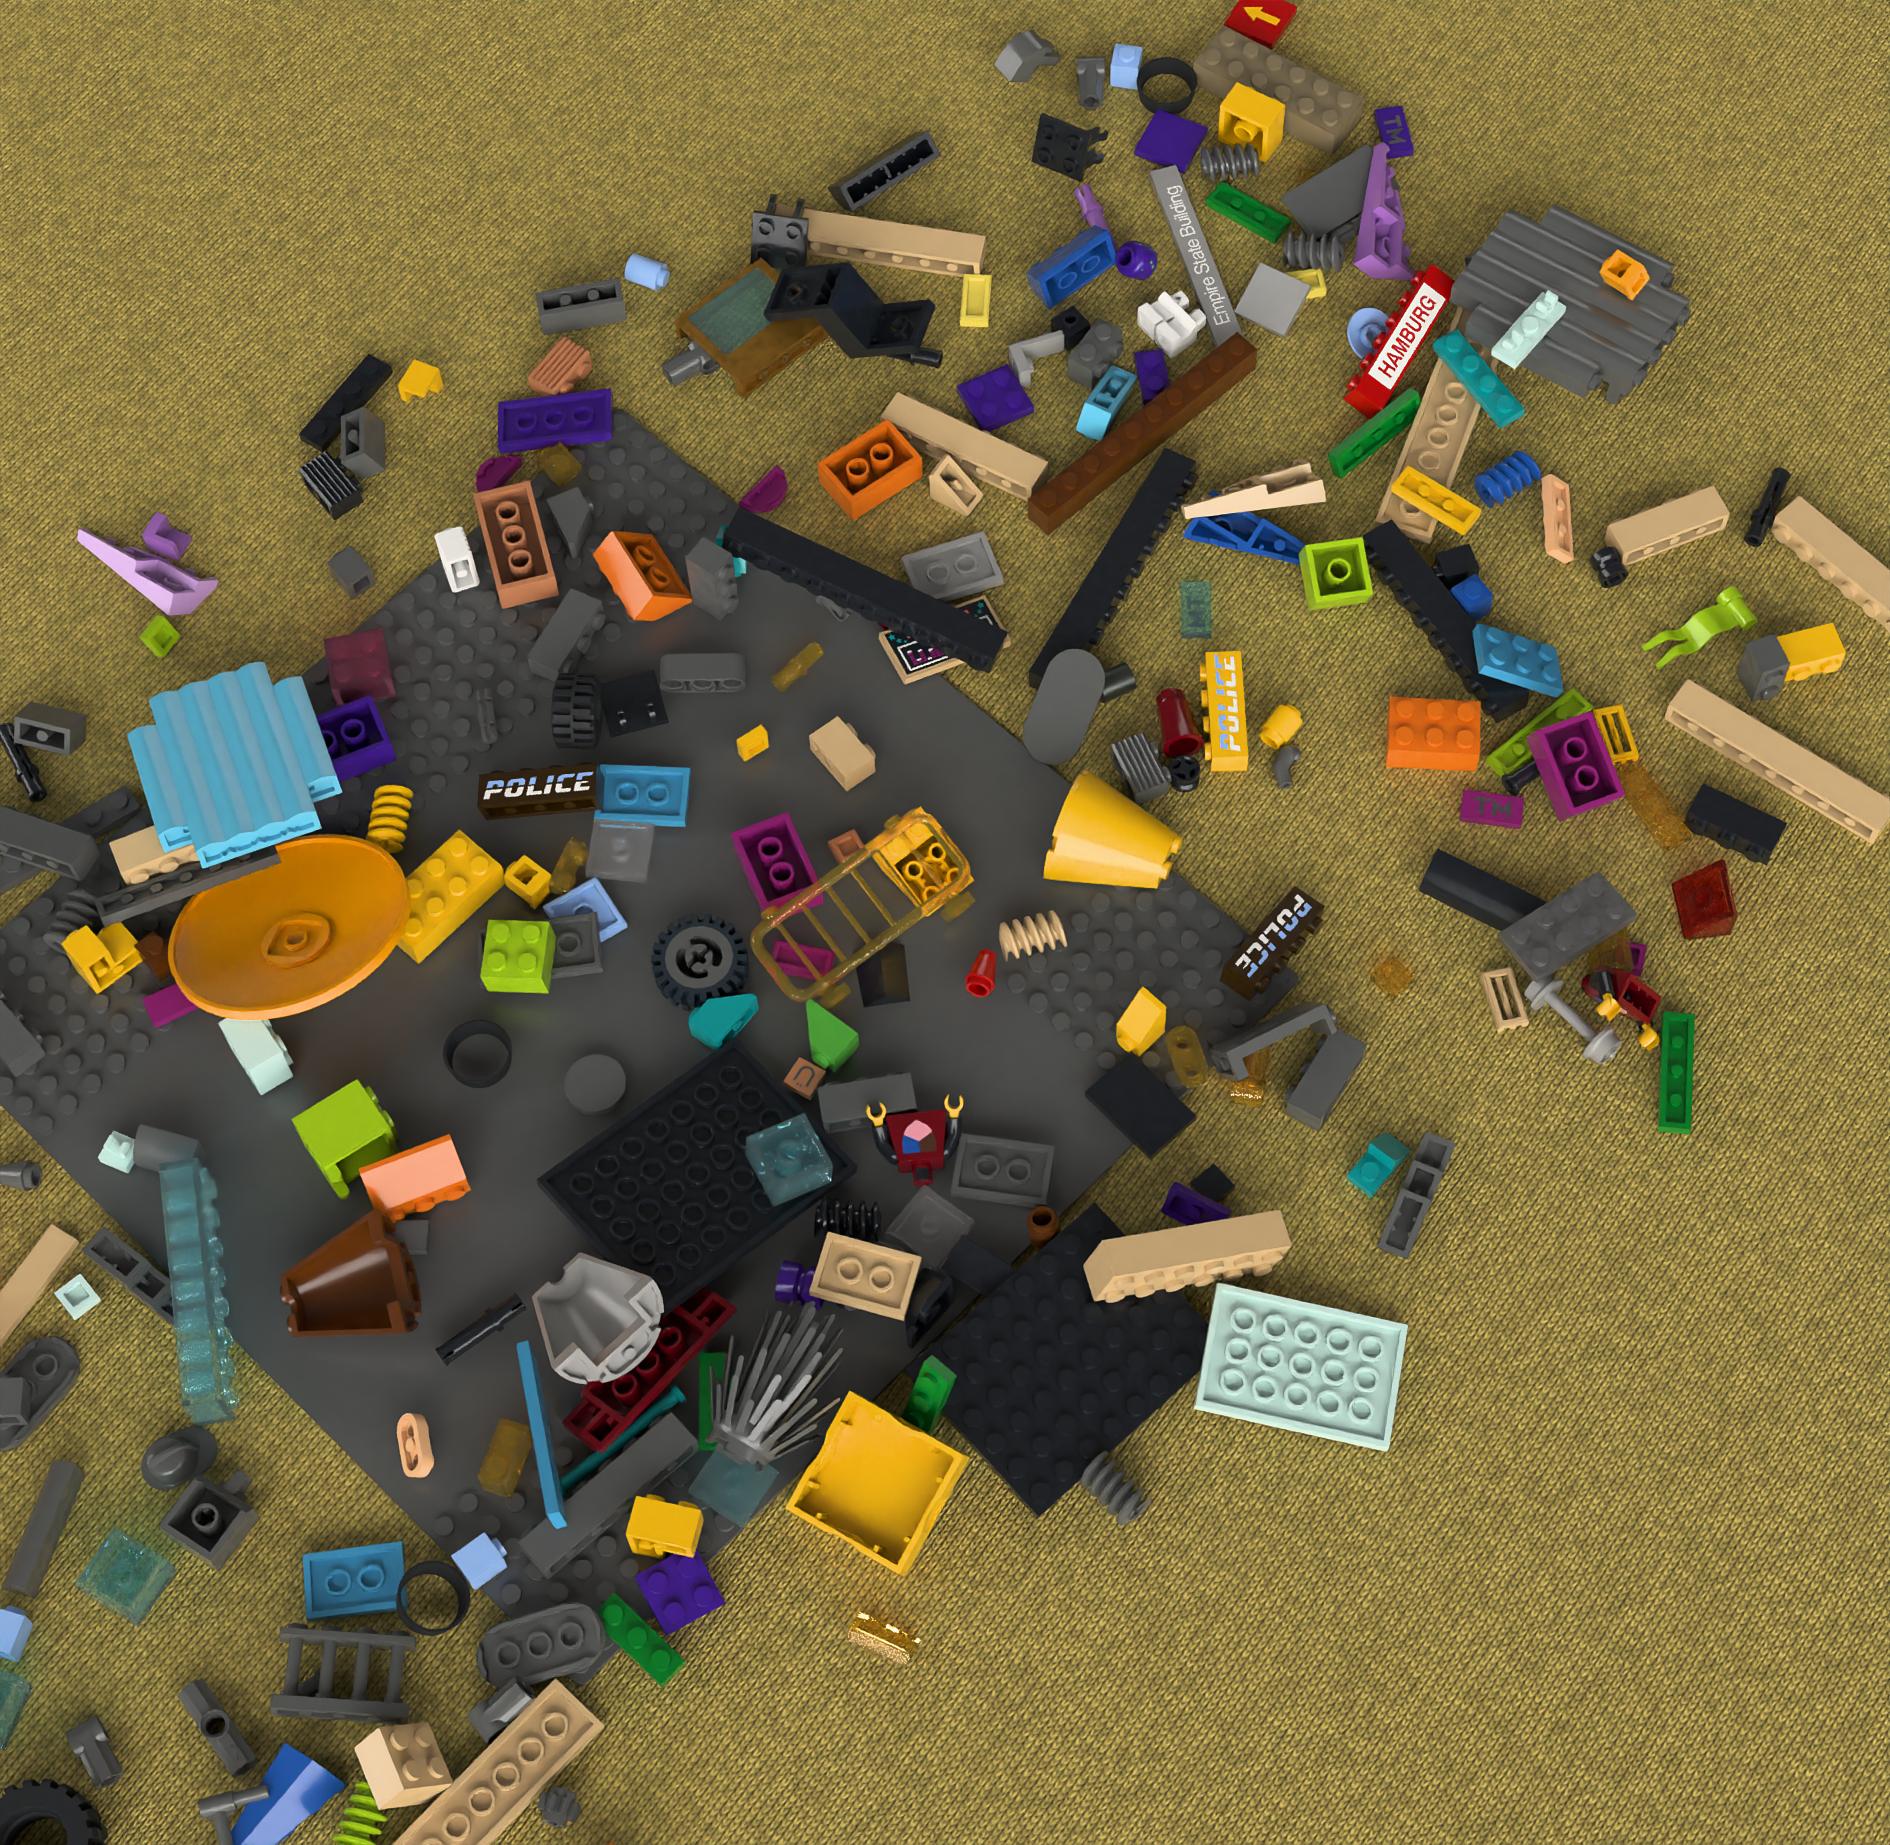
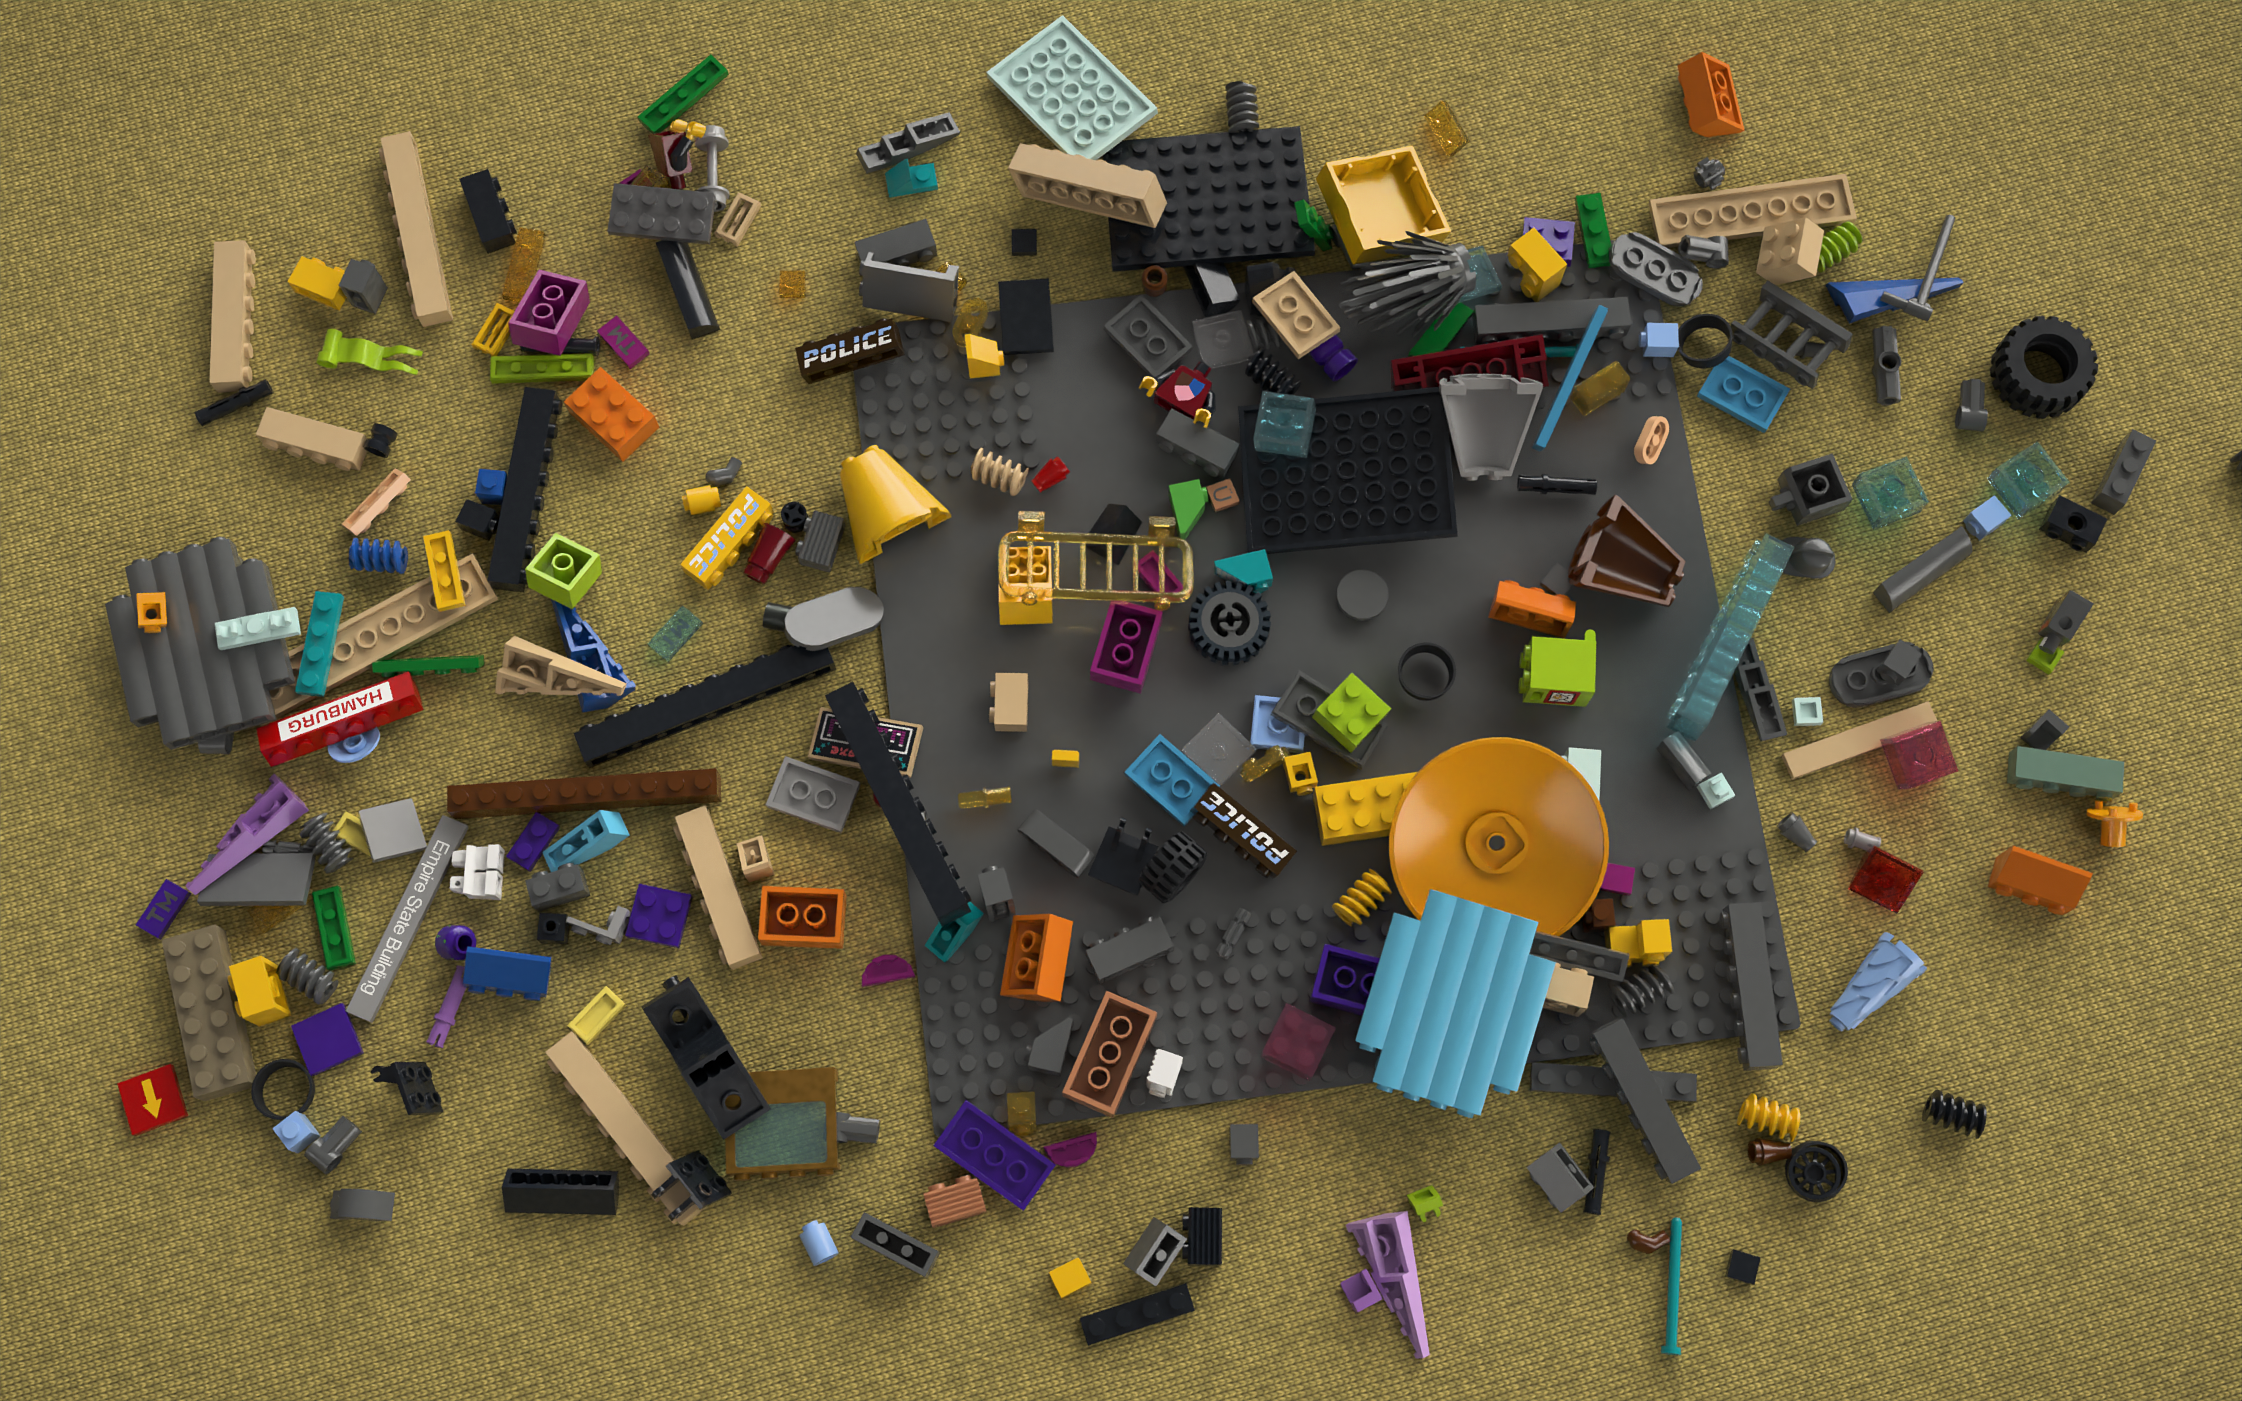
camera: 145 degrees left, 10 degrees up
(845, 845) = (1063, 634): nougat tile -> none
(1191, 1207) = (1049, 230): dark purple plate -> none
(1517, 660) = (510, 413): dark azure plate -> none
(1705, 902) = (557, 176): clear red slope -> none

